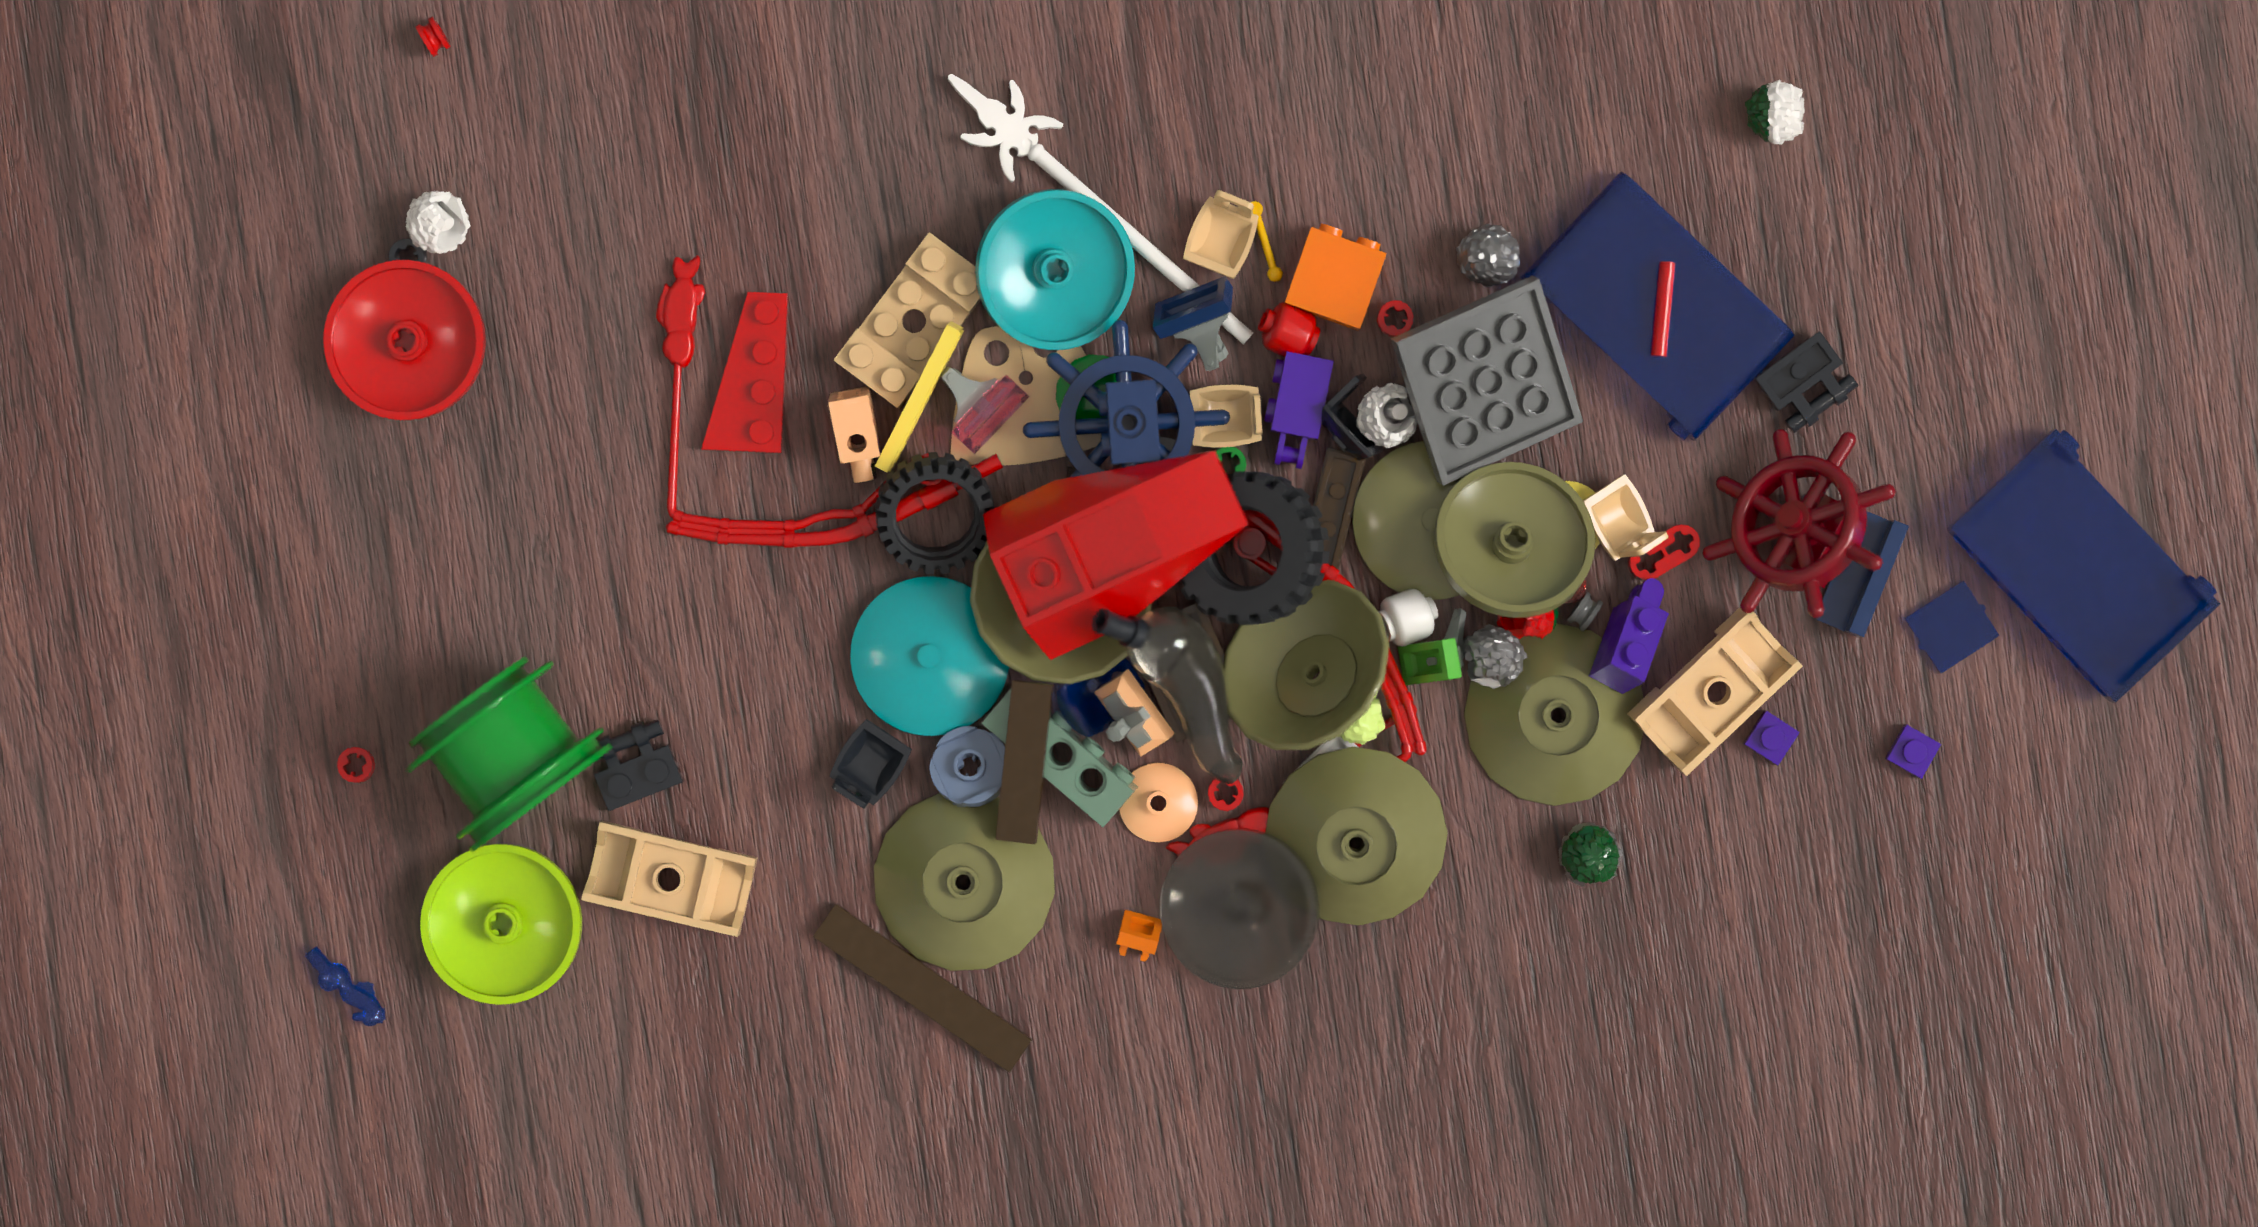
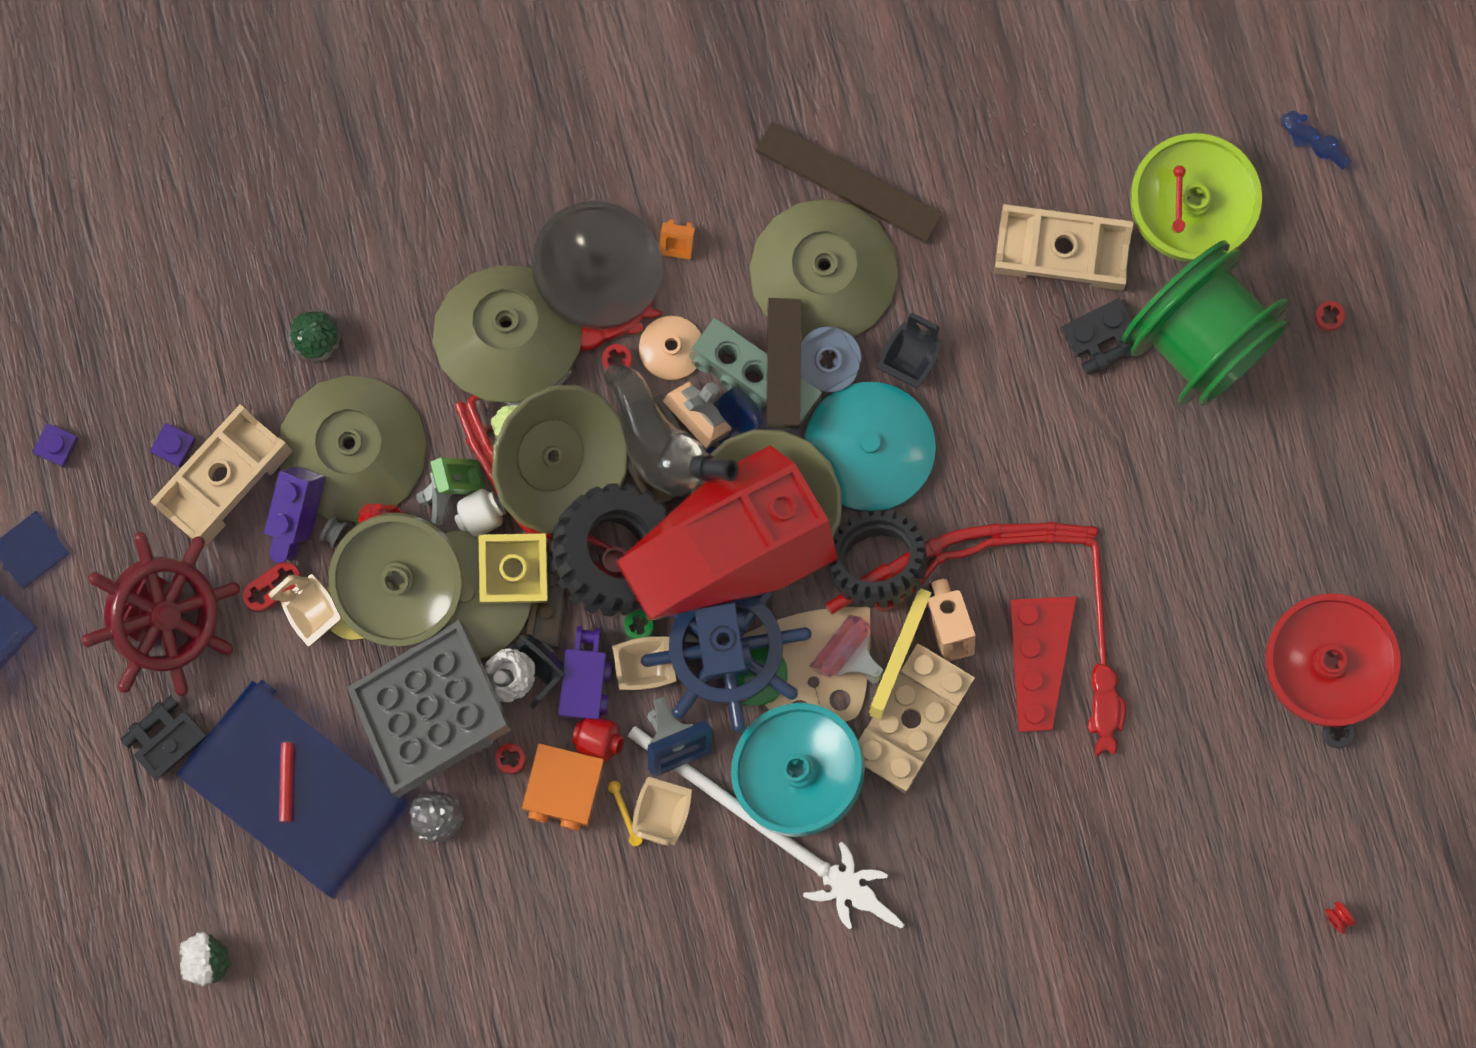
camera: 175 degrees right, 10 degrees down
(437, 222) = (1317, 761): white piece -> none
(526, 888) = (1179, 225): none -> red hinge
(1373, 538) = (512, 568): none -> light yellow brick
(1494, 657) = (405, 484): flat silver piece -> none
(1857, 590) = (110, 559): dark blue panel -> none

